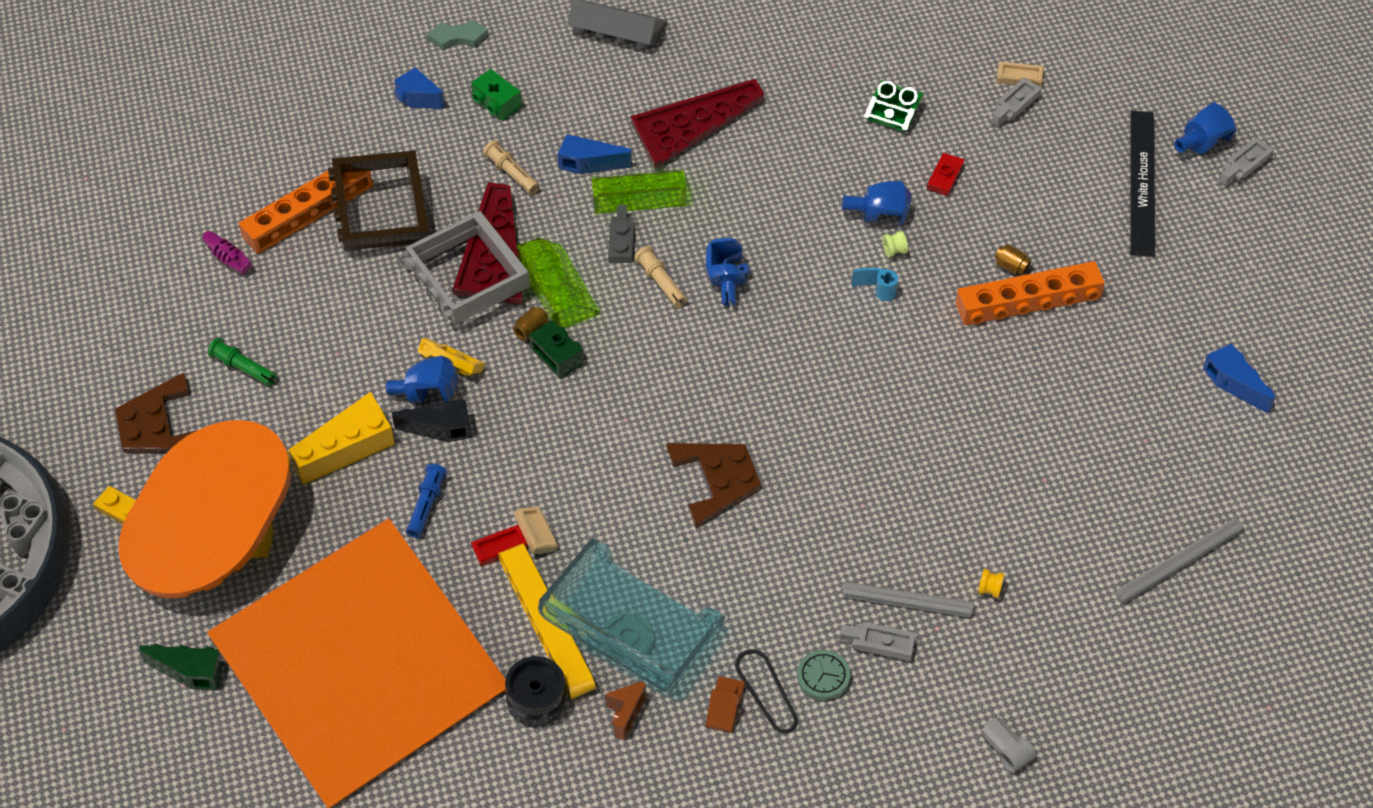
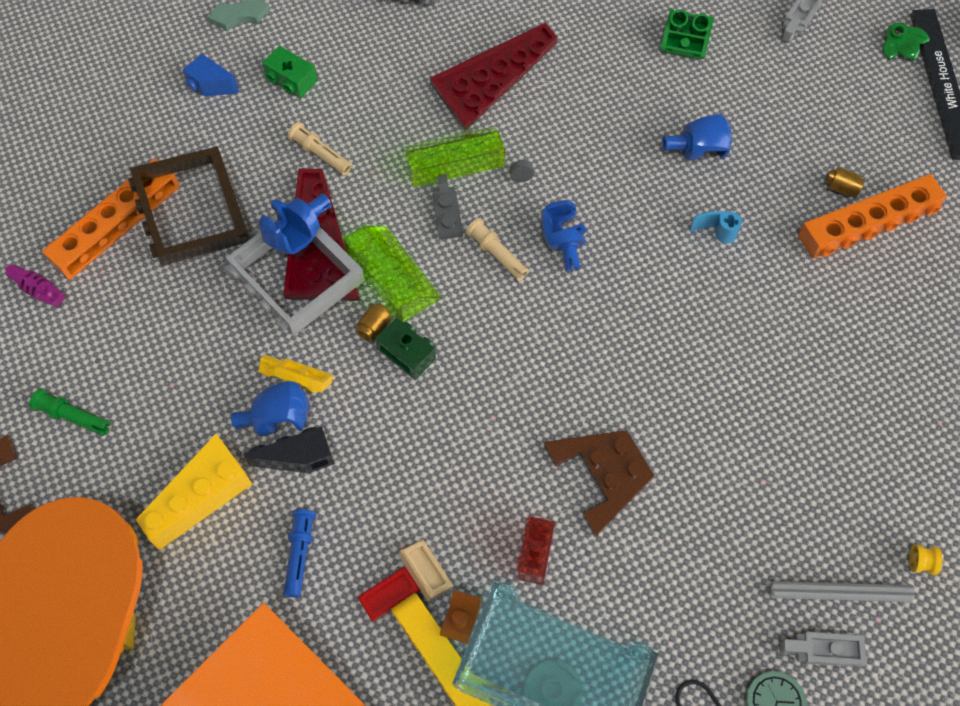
camera: 10 degrees left, 10 degrees up
(474, 225) = (295, 224): none -> blue piece
(559, 559) = (461, 616): none -> dark orange slope
(590, 156) = (396, 126): blue slope -> none
(636, 525) = (535, 550): none -> clear red brick
(700, 211) = (521, 171): none -> dark grey tile
(895, 244) = (725, 180): yellowish green wheel -> none
(945, 174) = (753, 98): red plate -> none
(1114, 140) = (905, 44): none -> green plate

